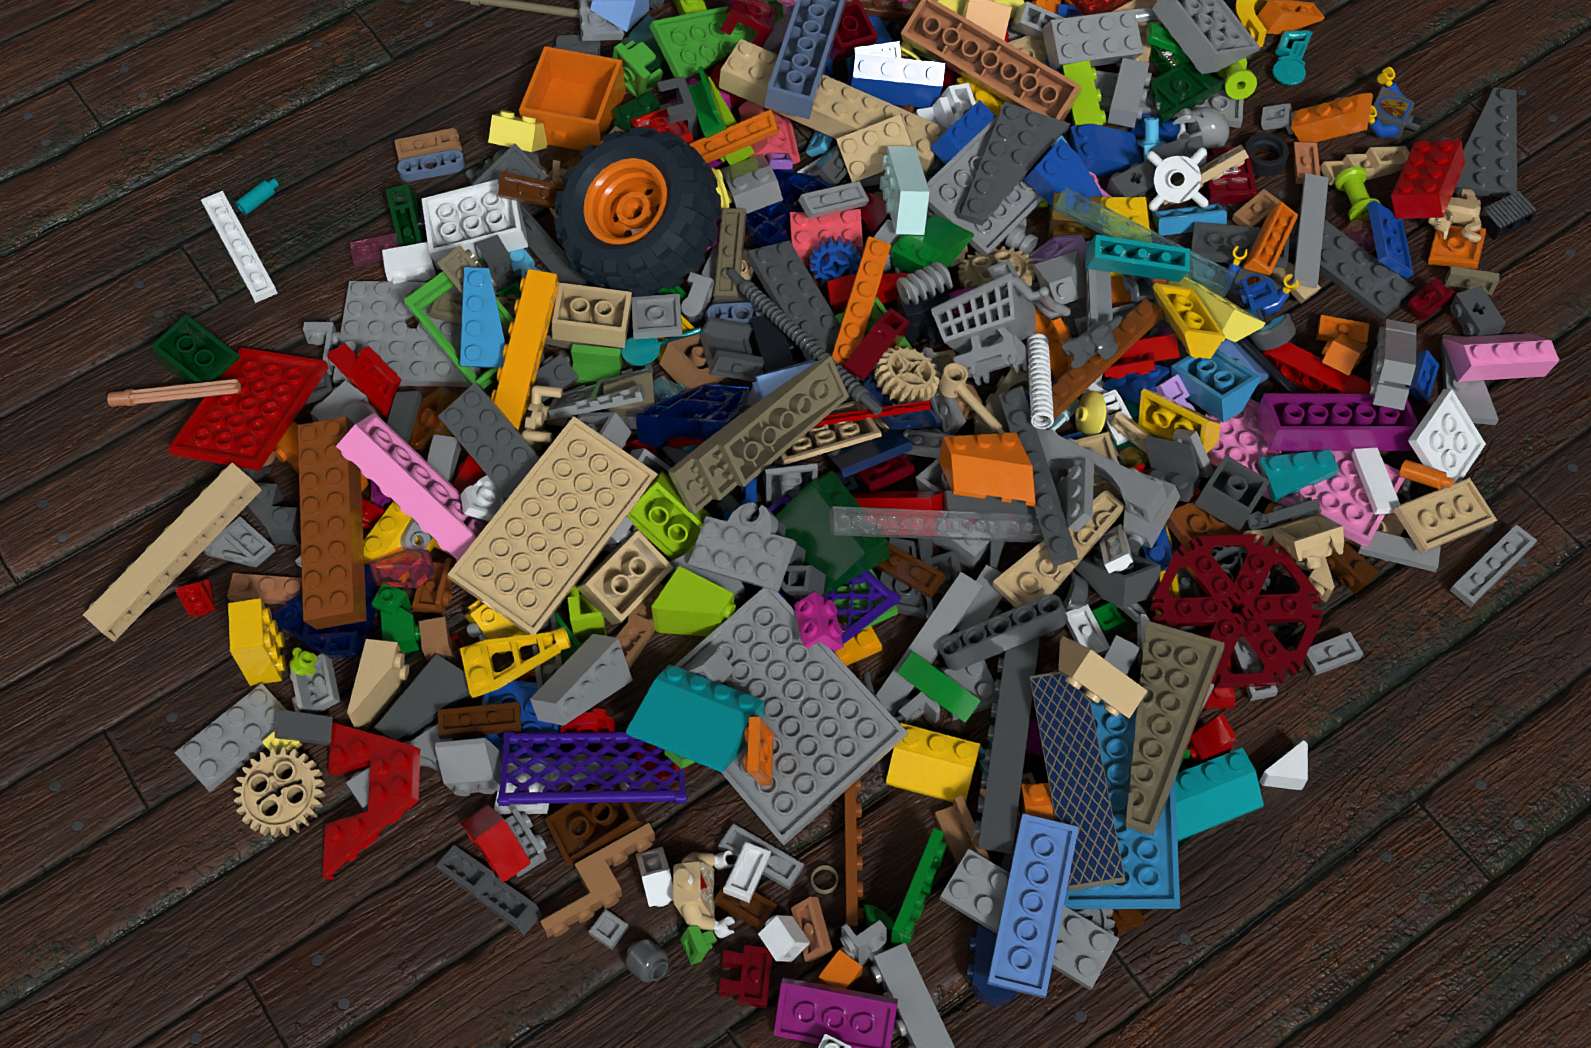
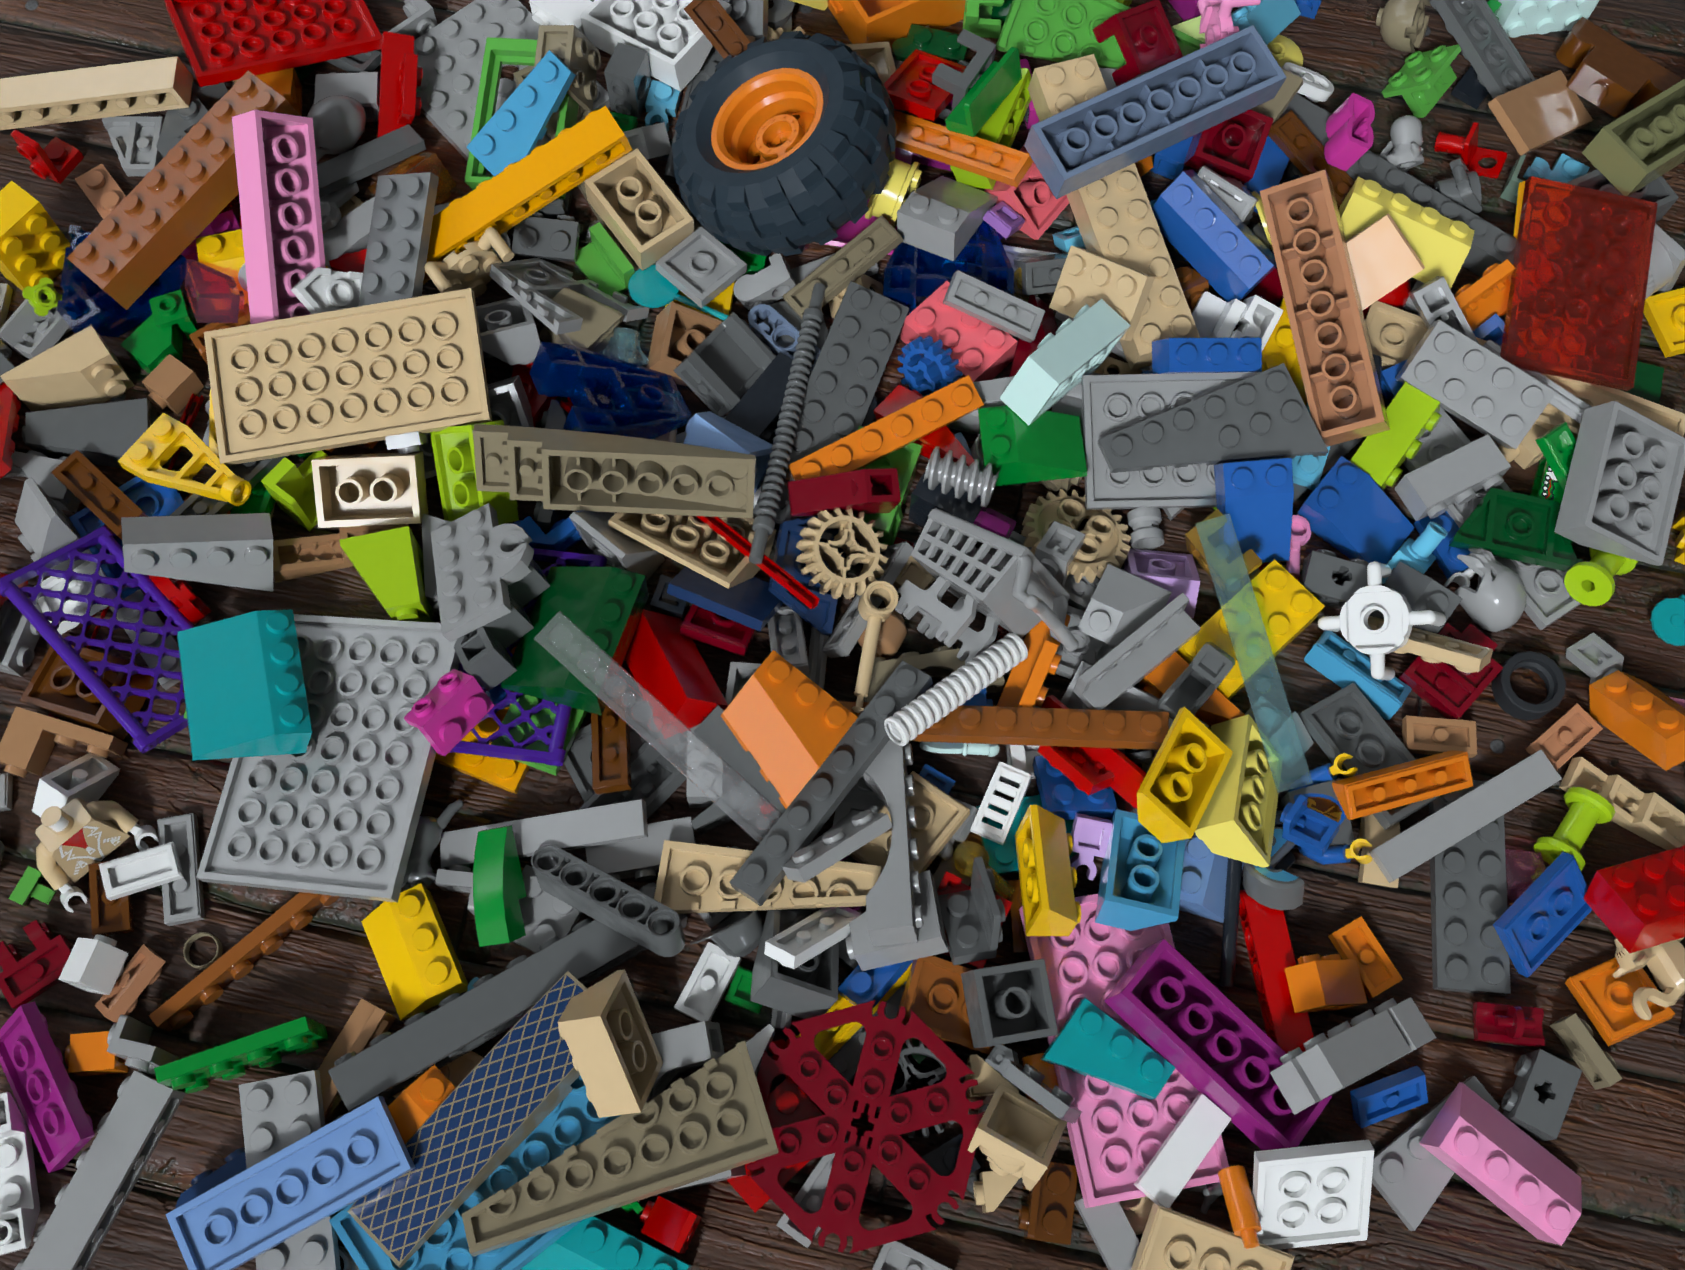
camera: 45 degrees right, 10 degrees up
(713, 667) = (322, 653): light grey panel -> none
(760, 751) = (254, 775): orange plate -> none
(873, 914) = (196, 1036): green tile -> none
(1090, 413) = (978, 773): light yellow dish -> none
(1096, 340) = (1054, 706): dark grey animal -> none
(1130, 430) = (997, 837): tan slope -> none
(1137, 258) = (1203, 663): teal brick -> none
(1191, 437) = (1018, 921): light grey tile -> none

